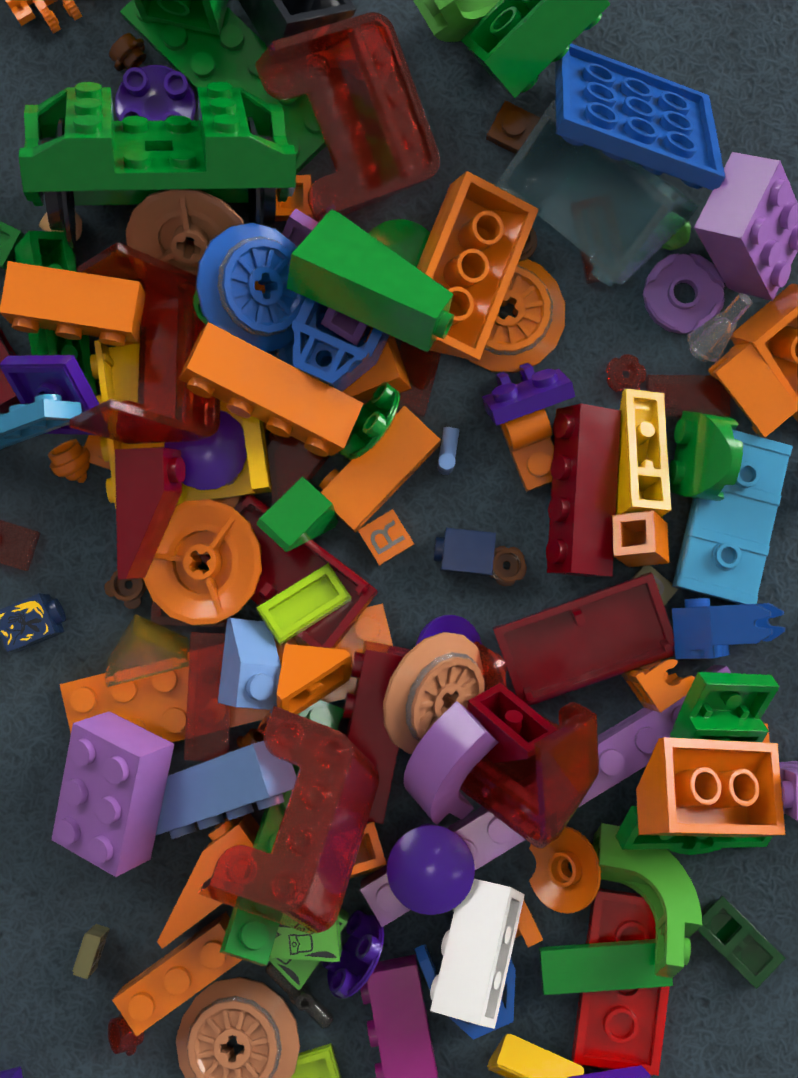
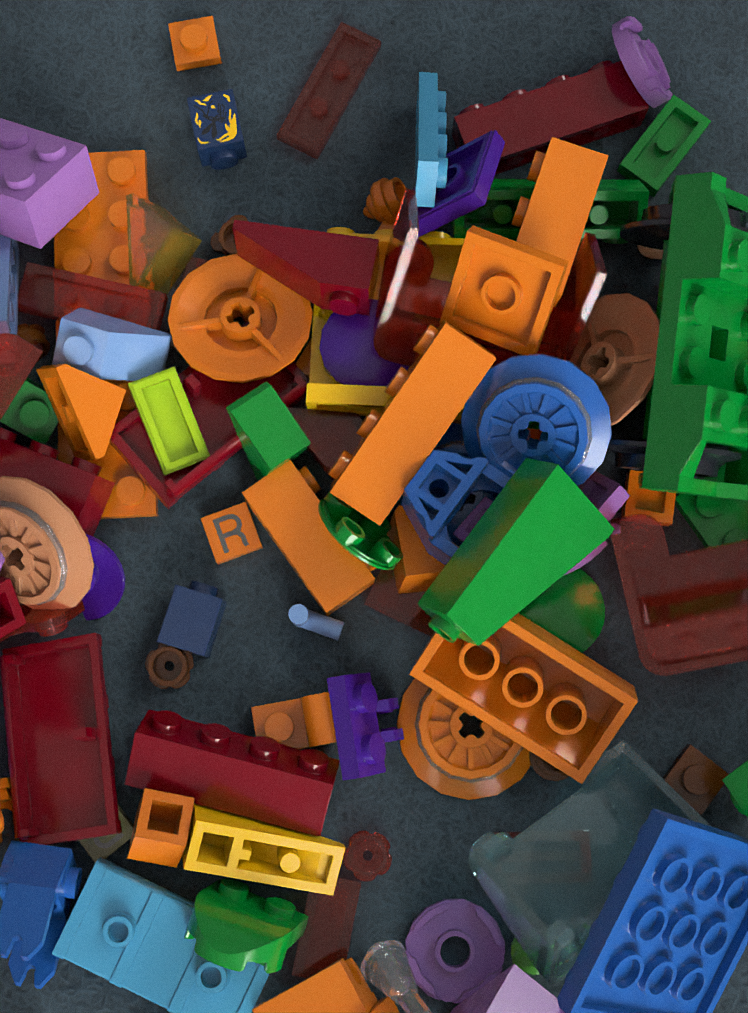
camera: 100 degrees right, 5 degrees down
(146, 328) = (503, 291): none -> orange plate

